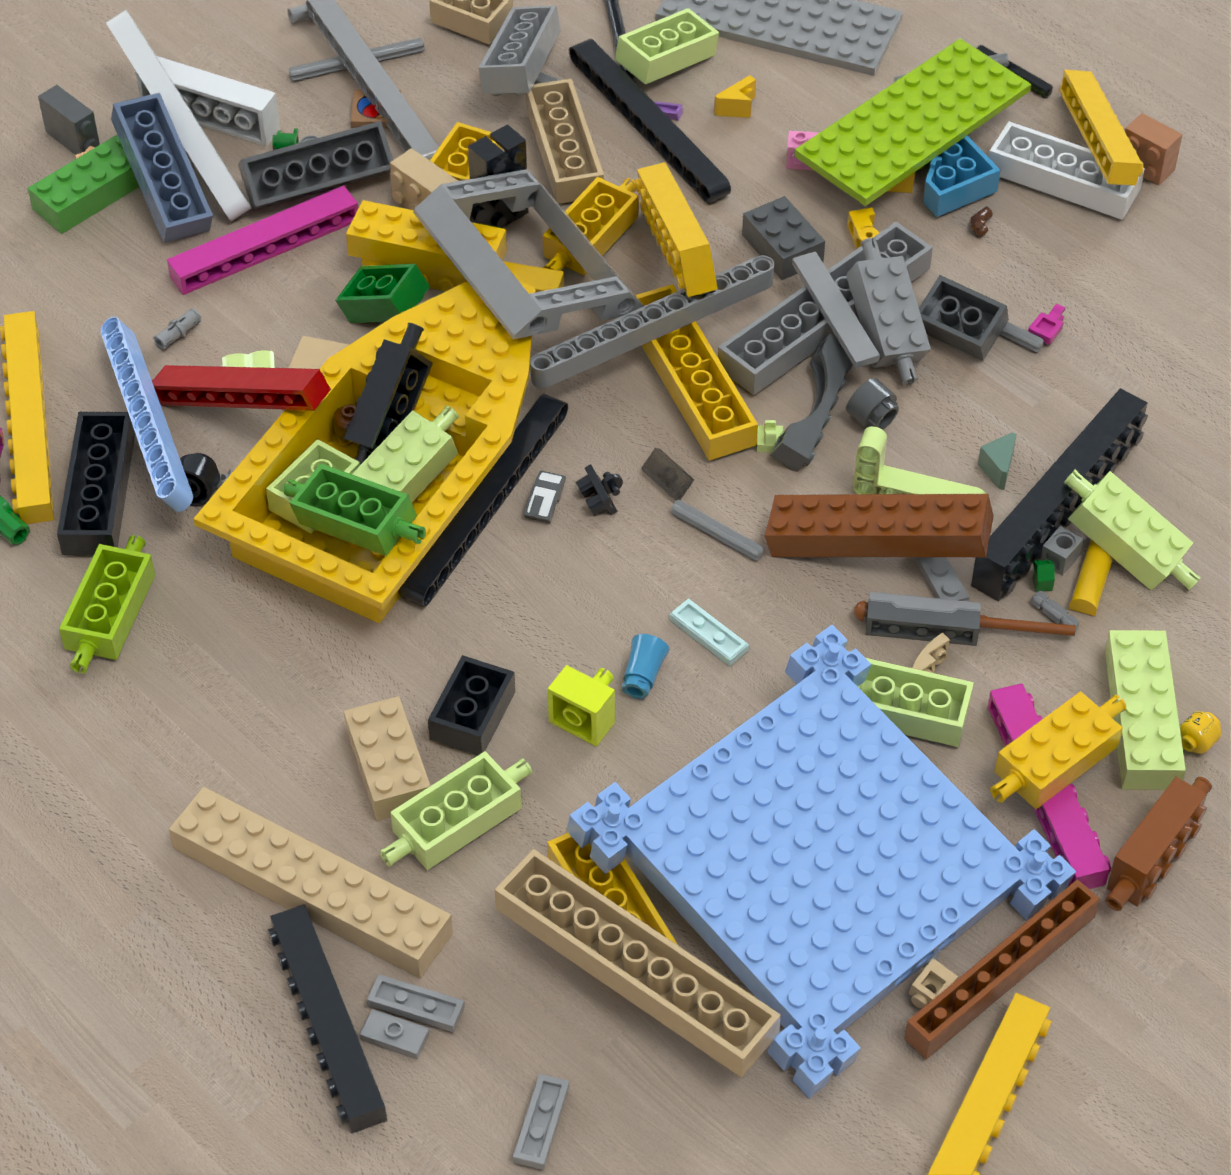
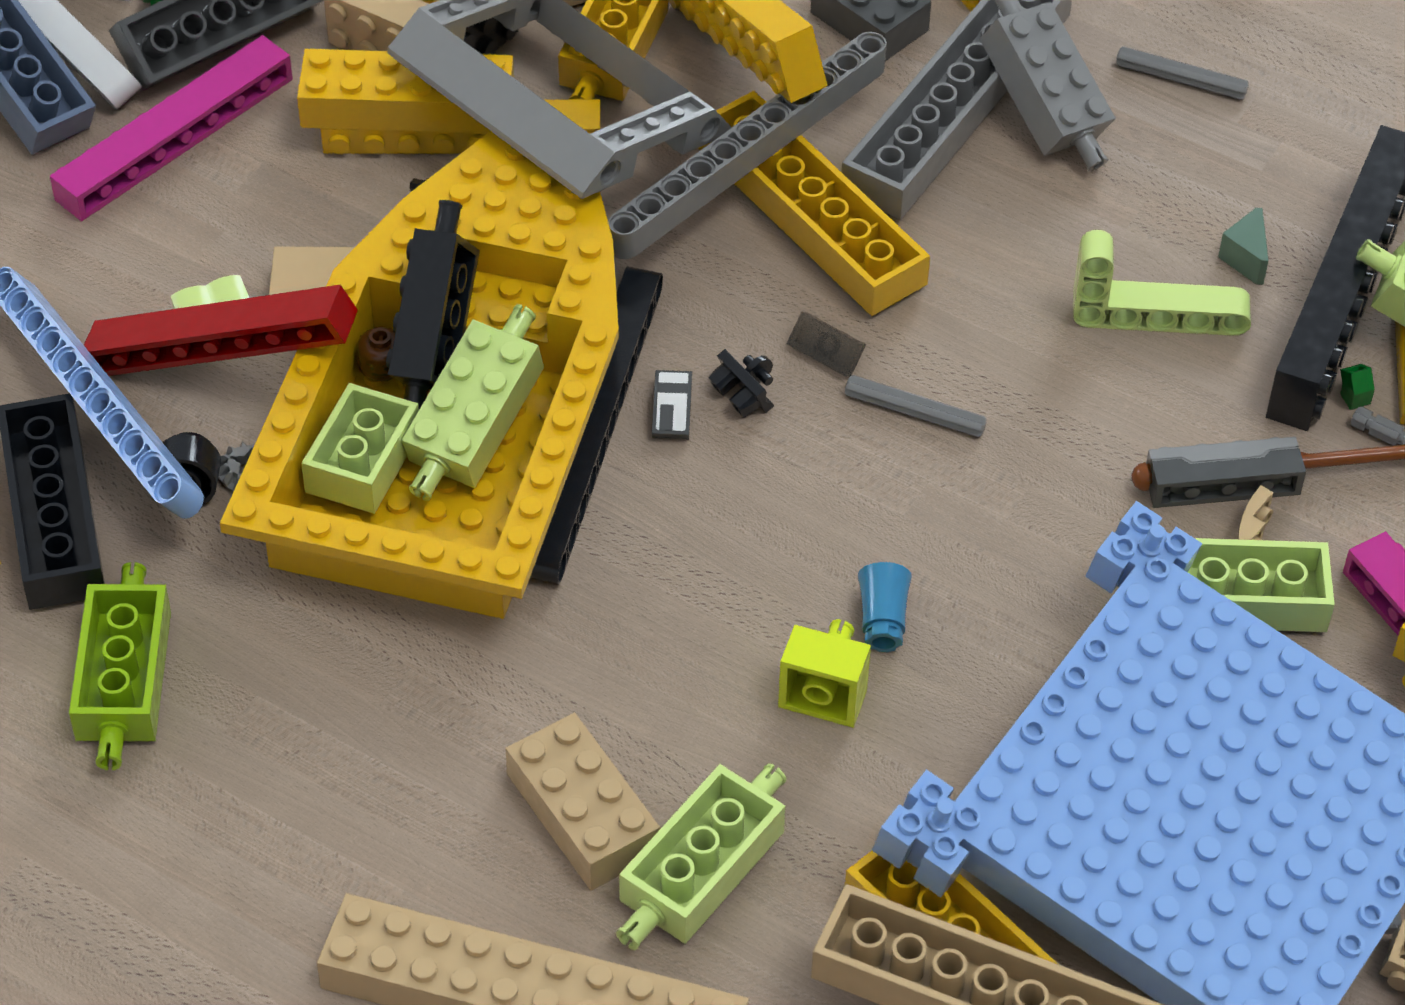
camera: 15 degrees left, 0 degrees up
(177, 328) = (91, 268): light grey pin -> none
(354, 509) = (442, 468): bright green brick -> none
(382, 292) = (366, 170): green brick -> none
(471, 705) = (674, 706): black brick -> none
(709, 632) = (950, 544): light aqua tile -> none
(768, 436) = (944, 271): yellowish green tile -> none
(797, 441) = (990, 163): dark grey arch -> none
(835, 310) = (980, 87): light grey tile -> none
(873, 405) = (1065, 205): dark grey piece -> none
(880, 525) = (1136, 359): dark orange brick -> none
(941, 578) = (1218, 405): light grey plate -> none
(963, 317) = (1142, 69): dark grey brick -> none
(1048, 325) = (1247, 61): dark pink plate -> none
(1062, 549) = (1369, 346): light grey brick -> none

